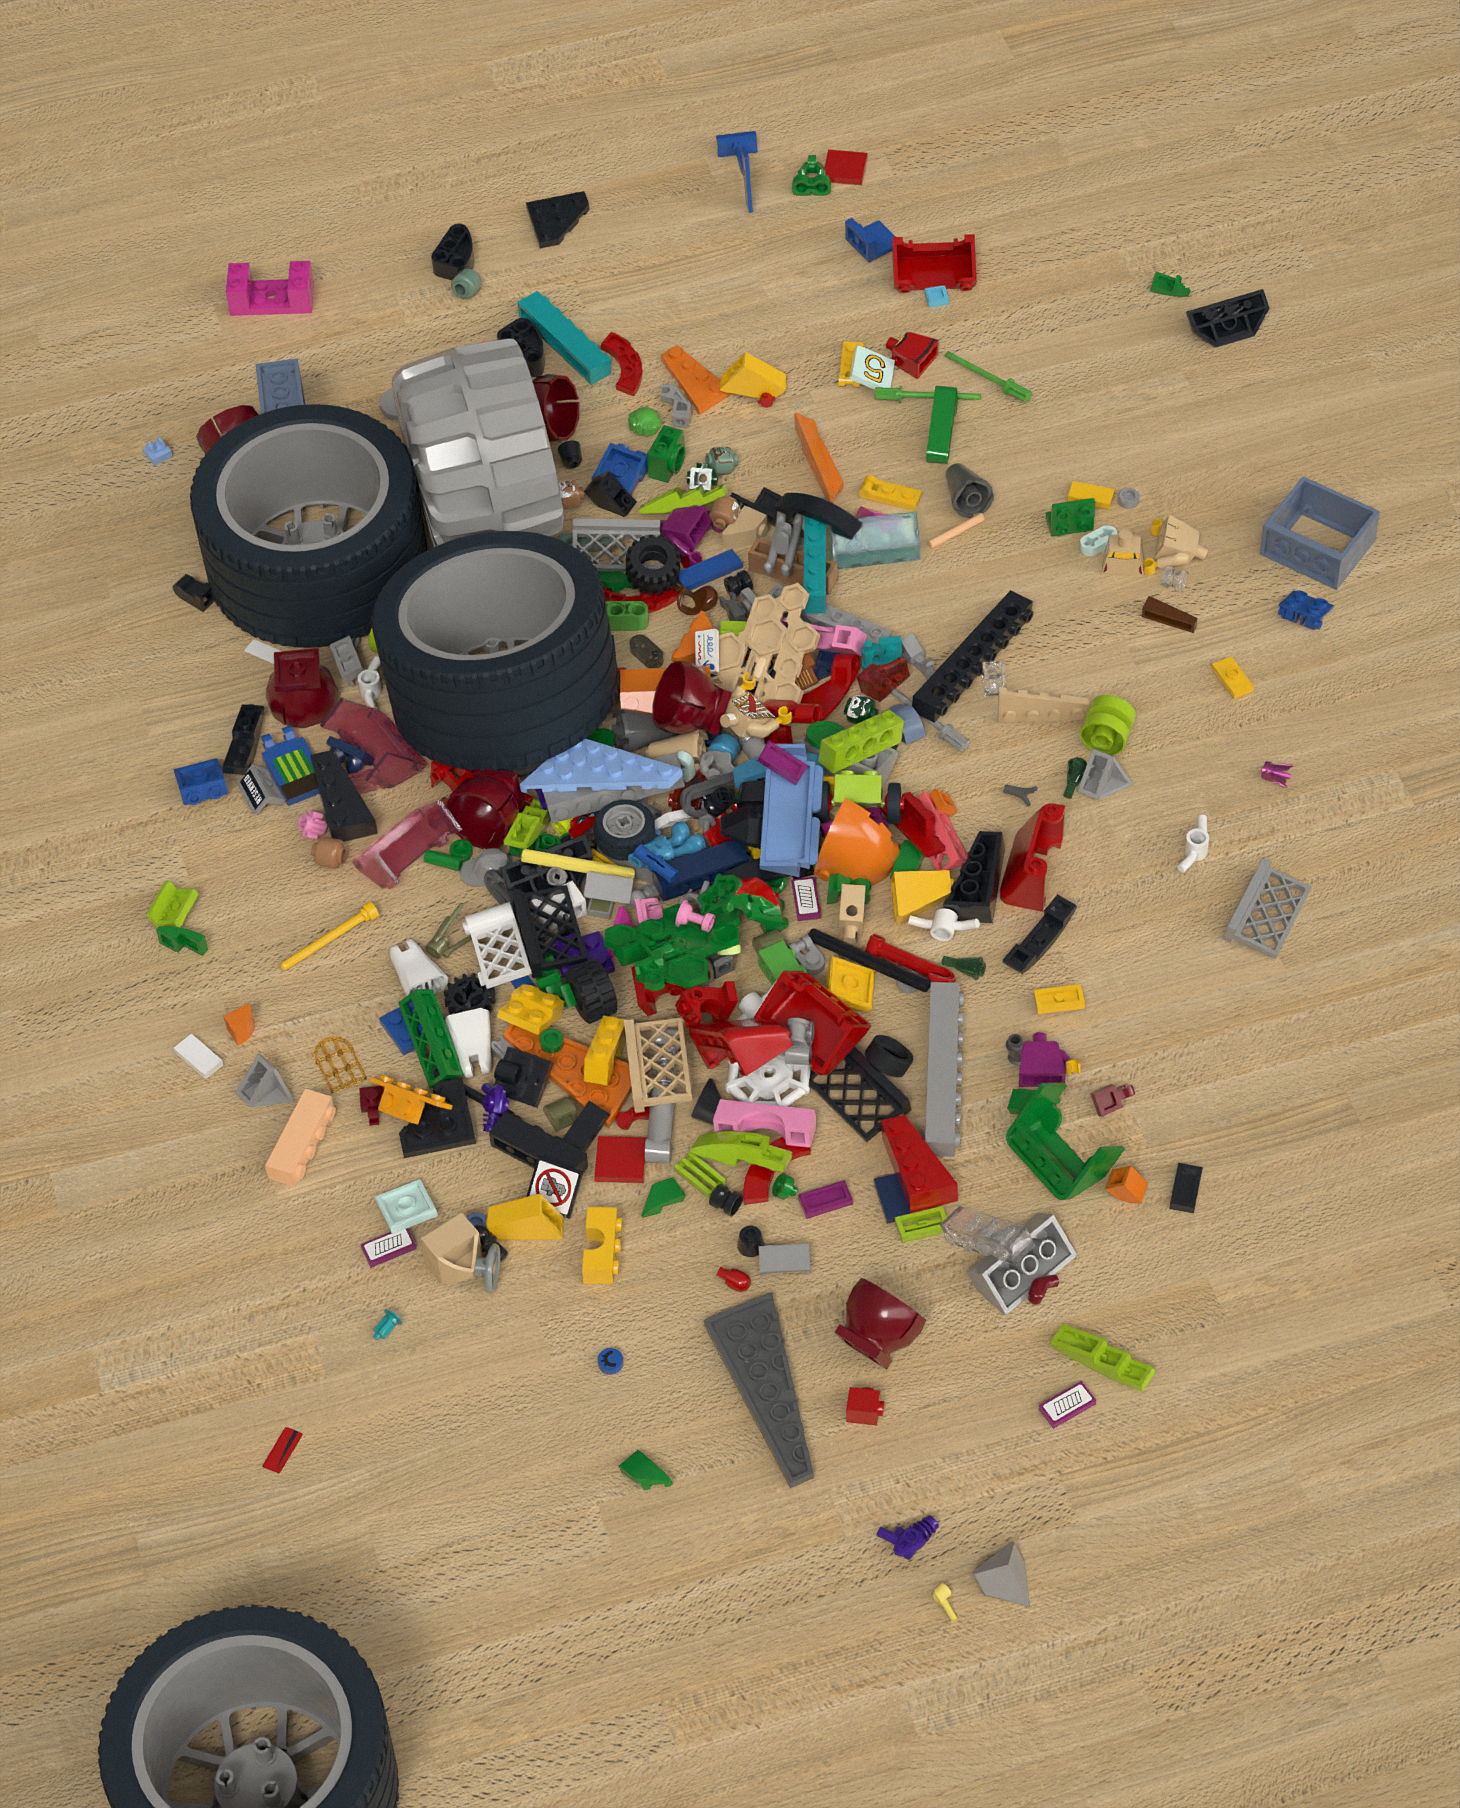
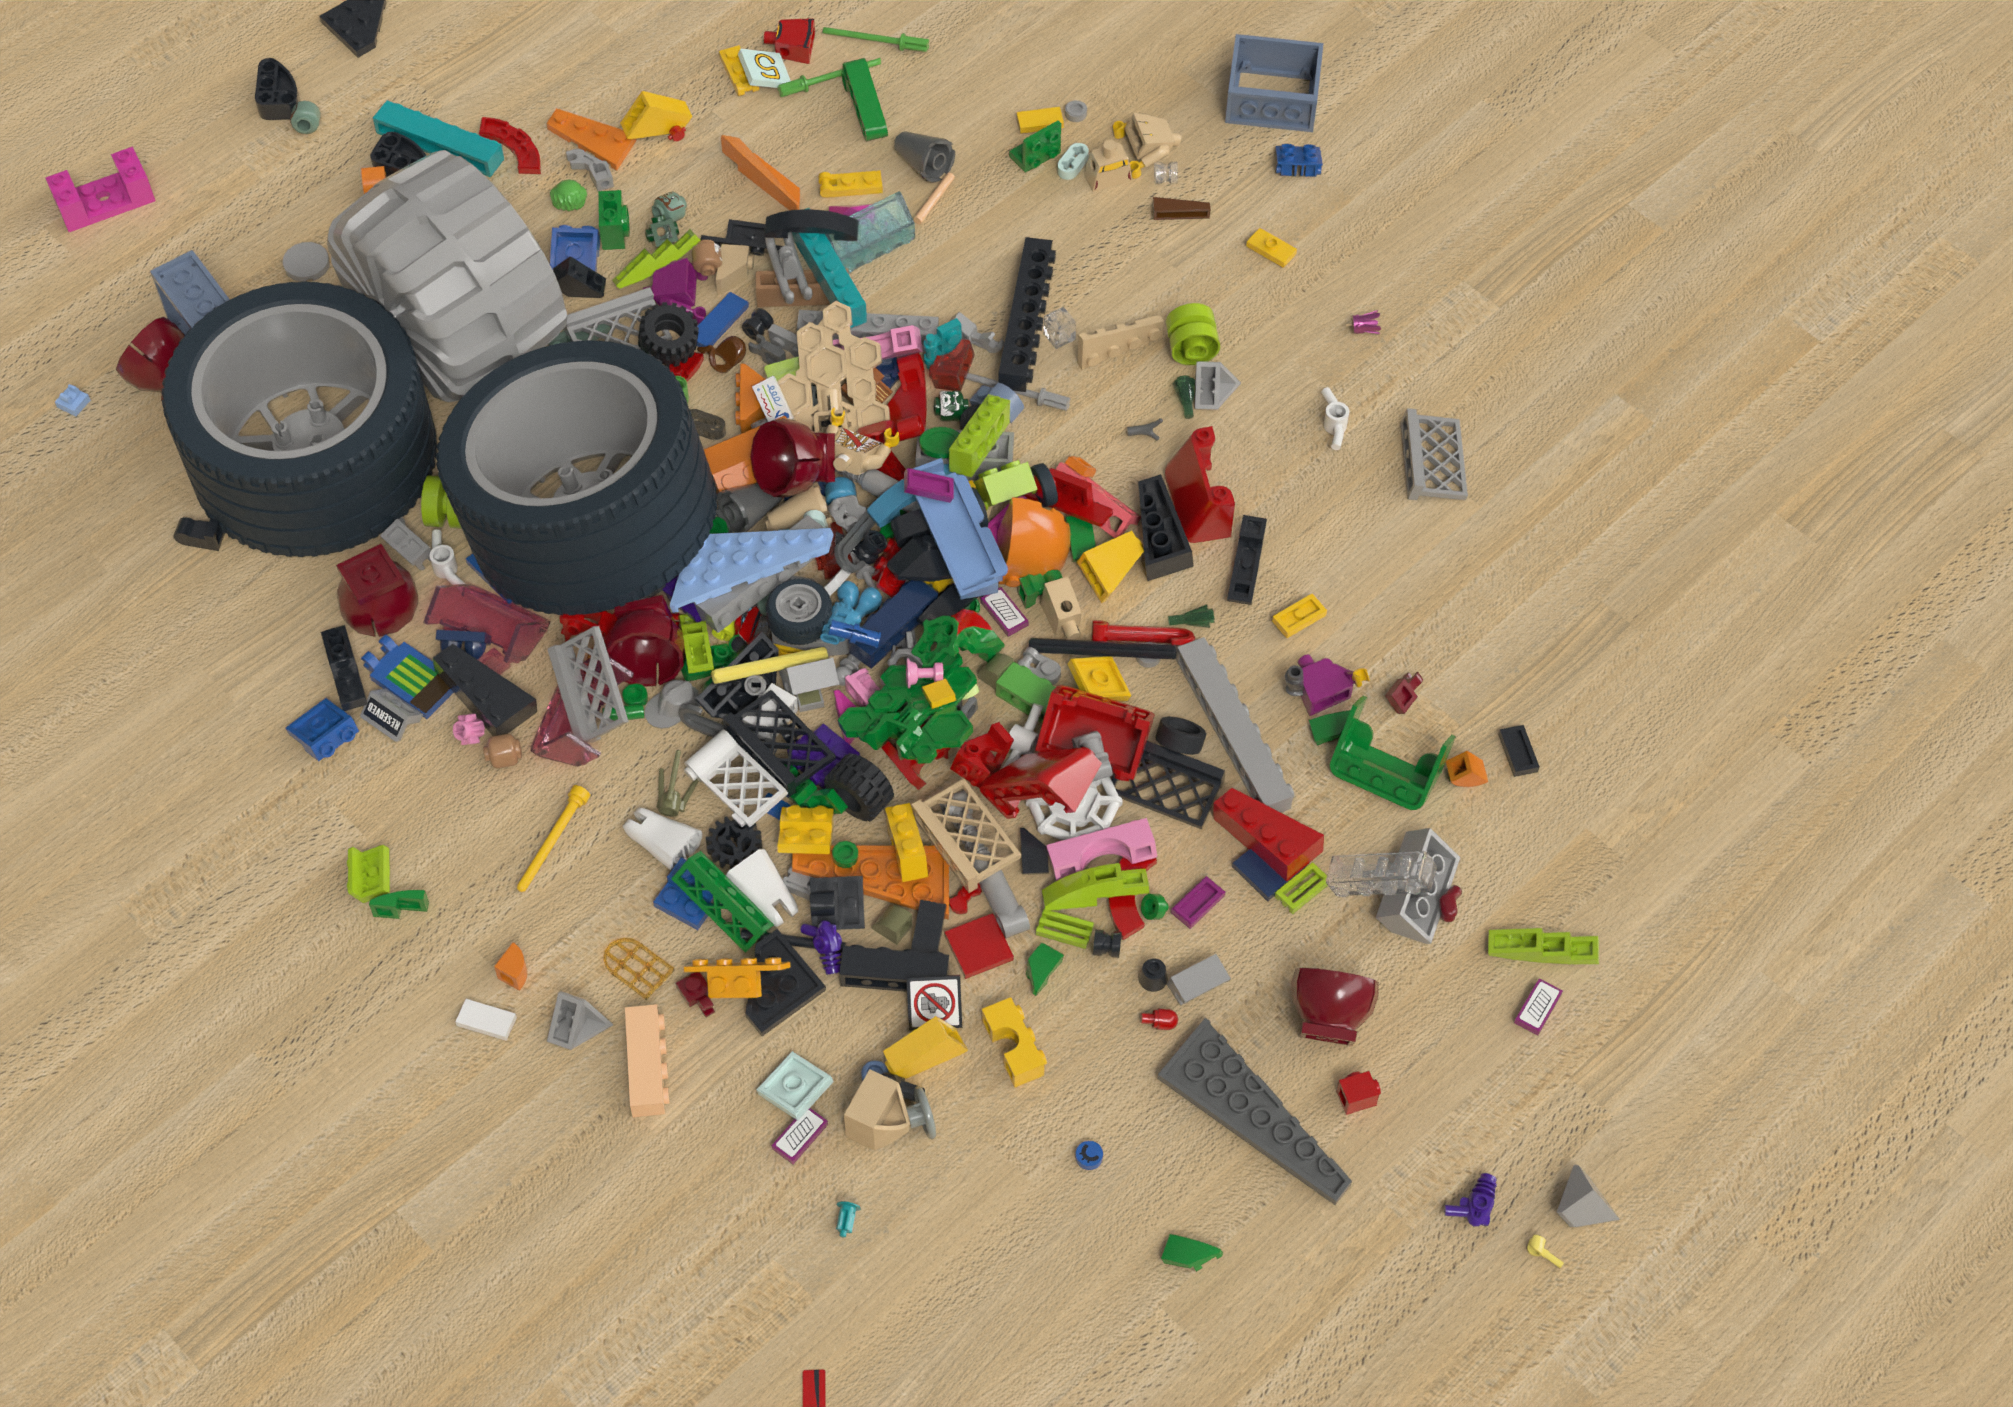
camera: 30 degrees left, 5 degrees up
(261, 650) = (311, 568): white sticker -> none
(408, 829) = (575, 691): none -> light grey fence
(697, 939) = (939, 693): none -> yellow tile
(944, 924) = (1151, 585): white piece -> none

